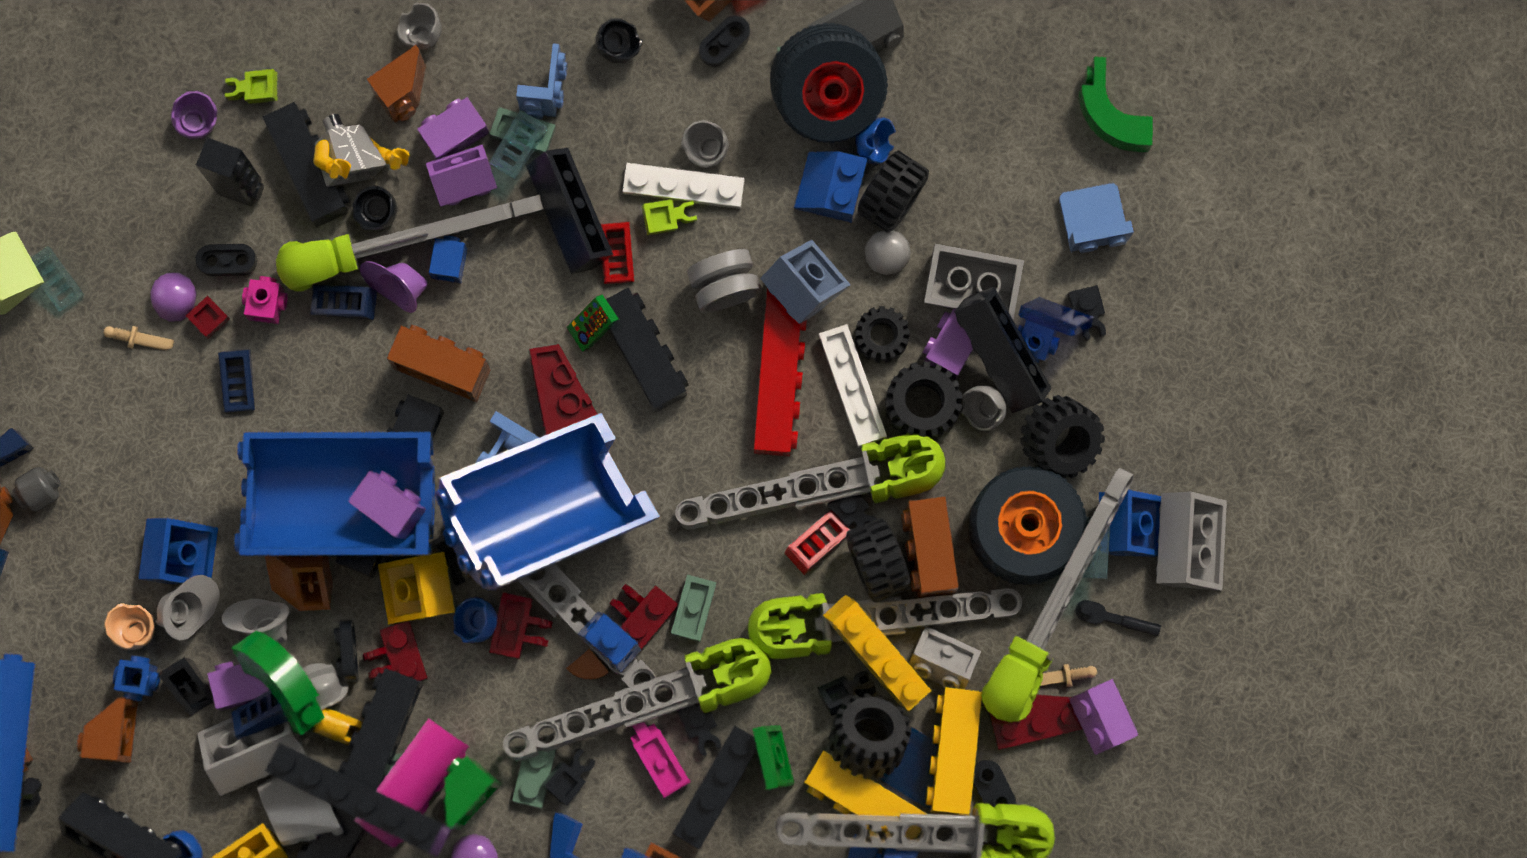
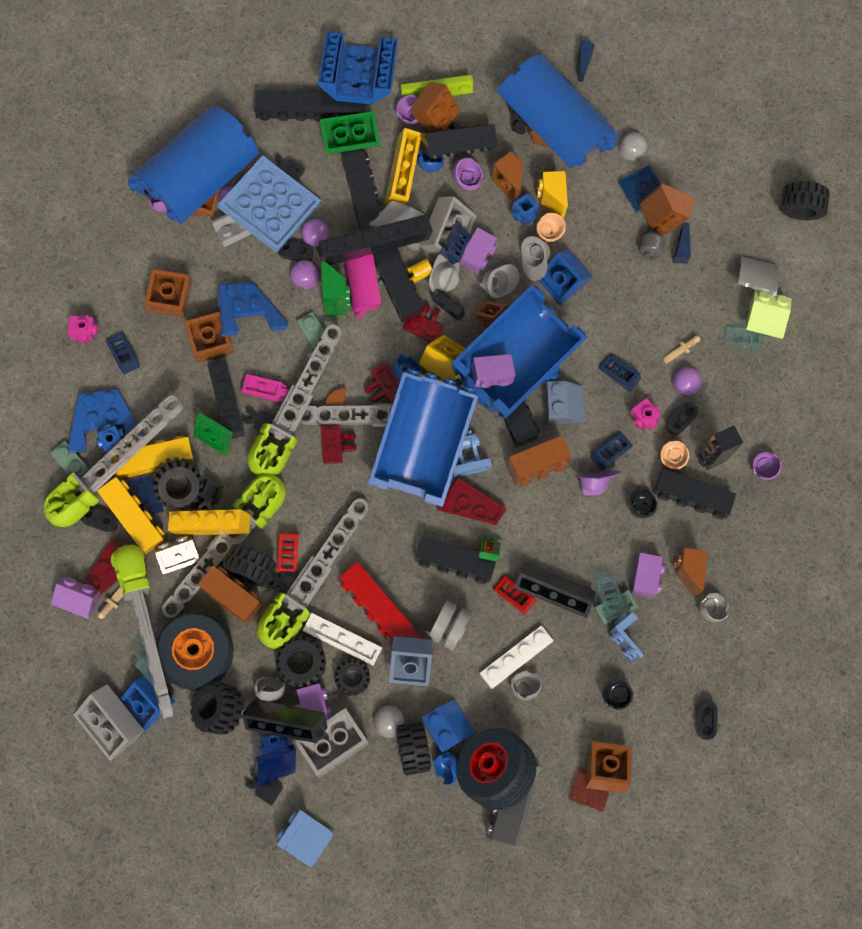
camera: 130 degrees right, 5 degrees down
(81, 661) = (553, 192): none -> yellow slope
(155, 783) = (467, 174): none -> medium lavender hair
(187, 685) = (501, 227): black slope -> none
(207, 317) = (662, 386): dark red plate -> none
(257, 87) = (755, 507): lime plate -> none
(274, 224) = (677, 452): none -> light nougat hair
(283, 676) = (461, 259): green arch -> none
(312, 262) = (639, 458): piece -> none
(338, 403) = (564, 403): none -> sand blue slope
(351, 154) = (679, 516): torso -> none
(448, 259) = (585, 514): blue brick -> none
(461, 176) = (620, 556): medium lavender brick -> none
(565, 779) = (297, 341): black plate -> none
(610, 641) = (336, 412): blue torso -> none
(663, 217) = (510, 631): lime plate -> none
(693, 608) = (315, 468): sand green plate -> none
(723, 41) = (571, 747): black plate -> none
(1096, 613) = (124, 645): black piece -> none
(1106, 121) = (346, 894): green arch -> none

